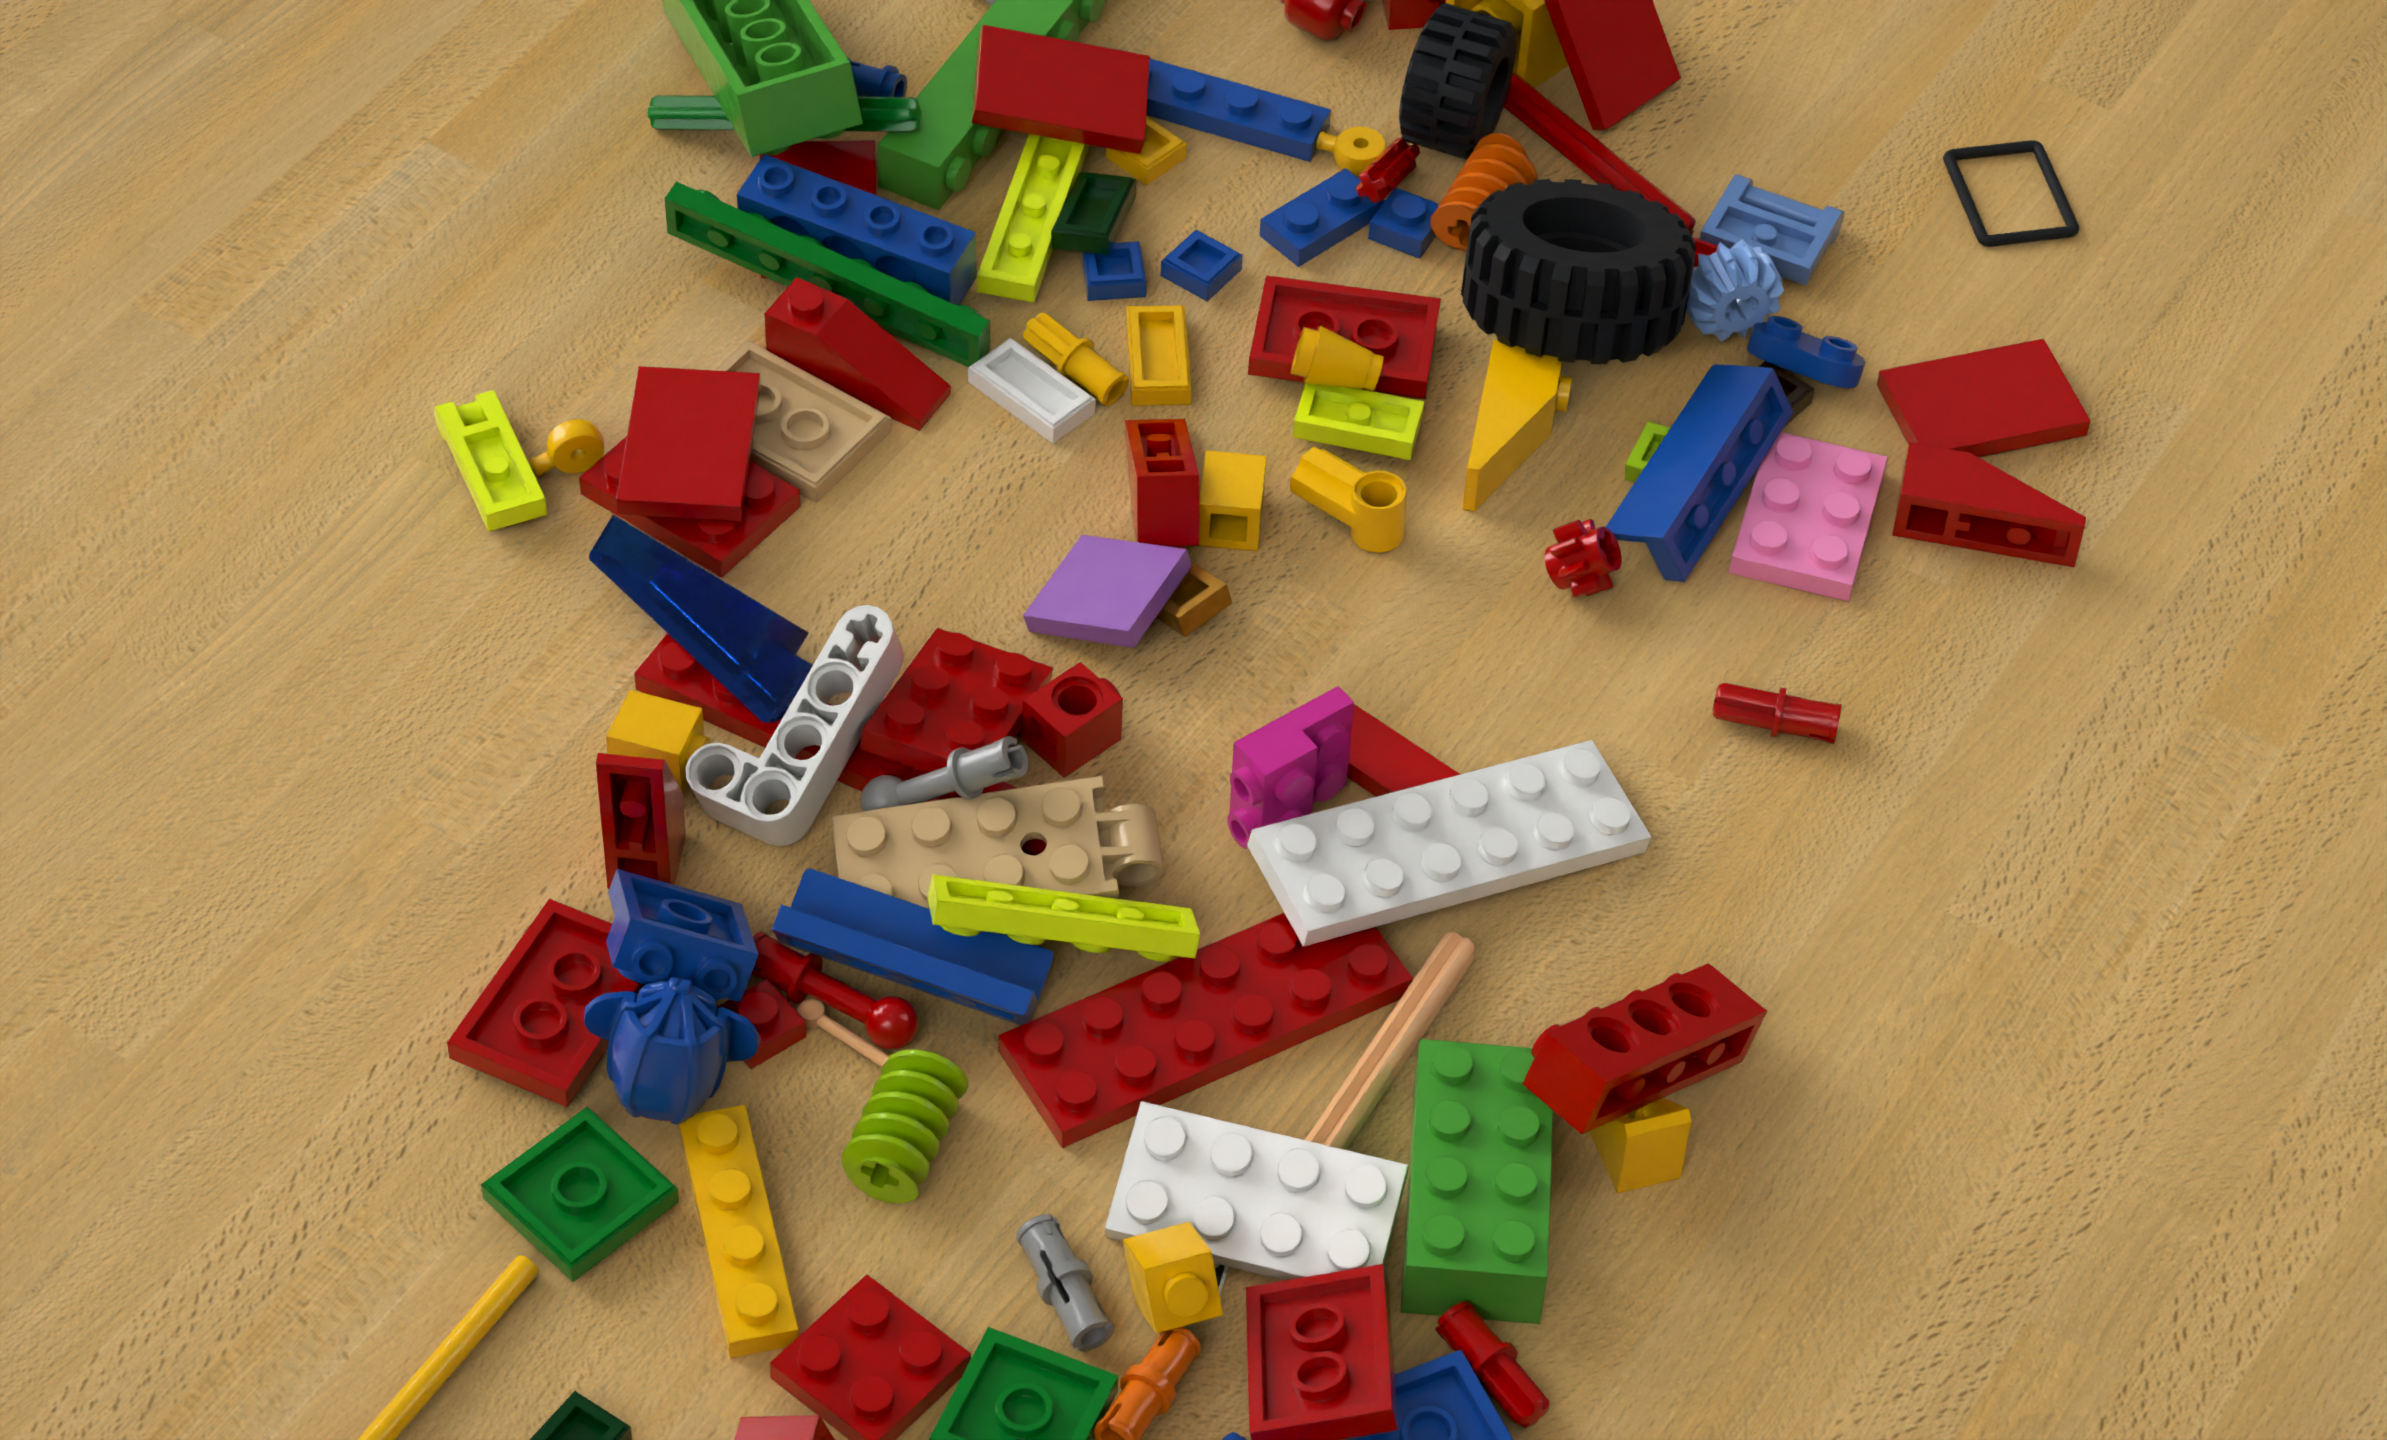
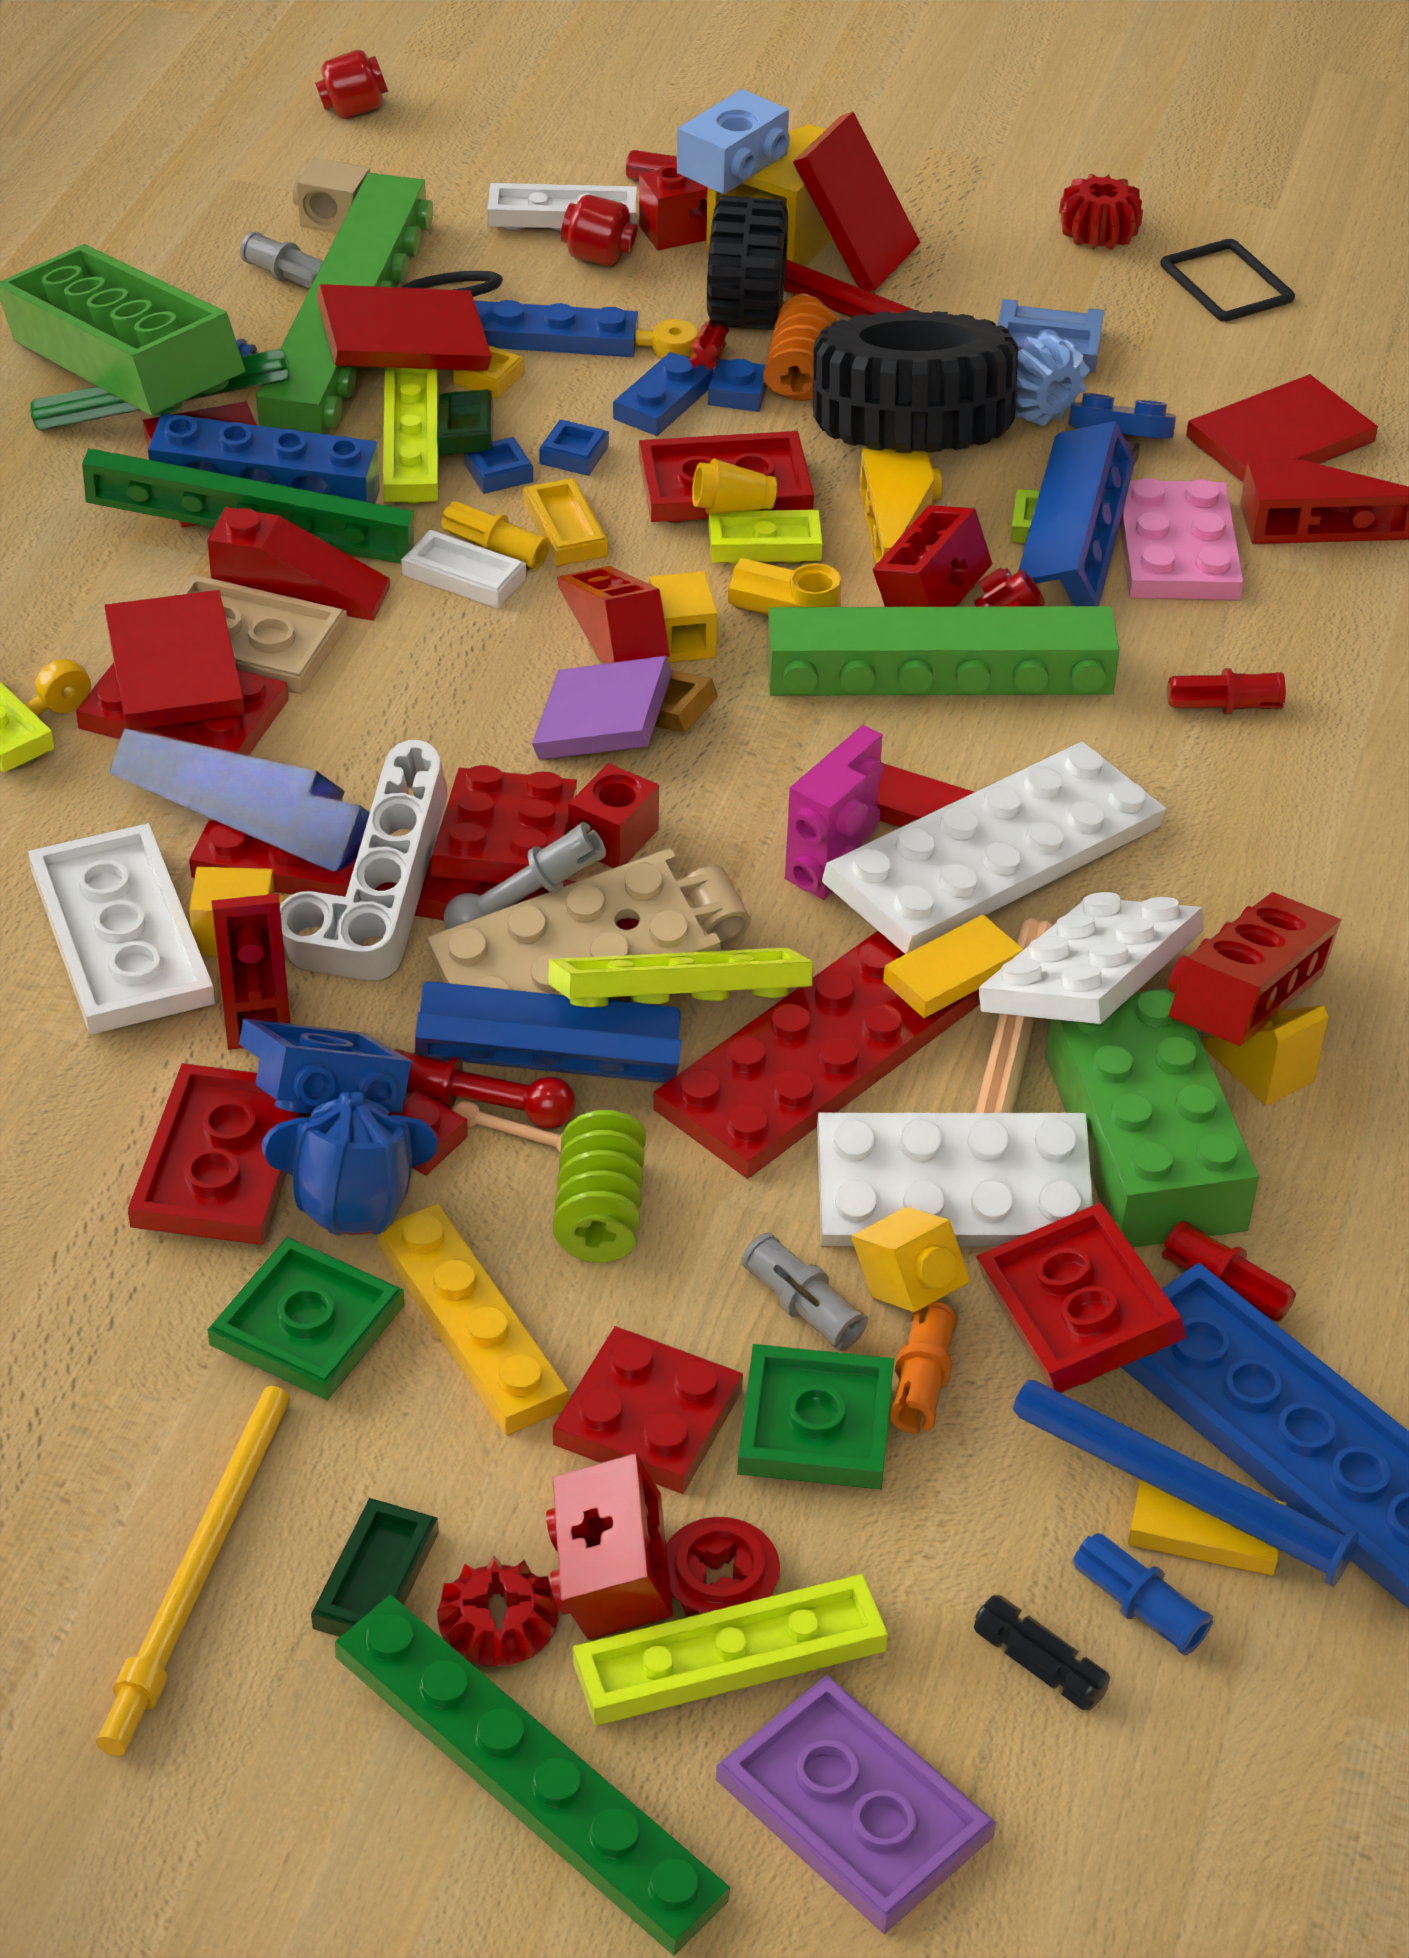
camera: 15 degrees left, 5 degrees down
(540, 733) = (120, 929): none -> white plate
(1145, 22) = (491, 279): none -> black piece
(1344, 970) = (950, 965): none -> yellow tile
(1484, 998) = (1092, 959): none -> white plate
(1488, 599) = (942, 651): none -> bright green brick
(1514, 499) = (934, 560): none -> red brick
(1896, 80) = (1101, 211): none -> red gear

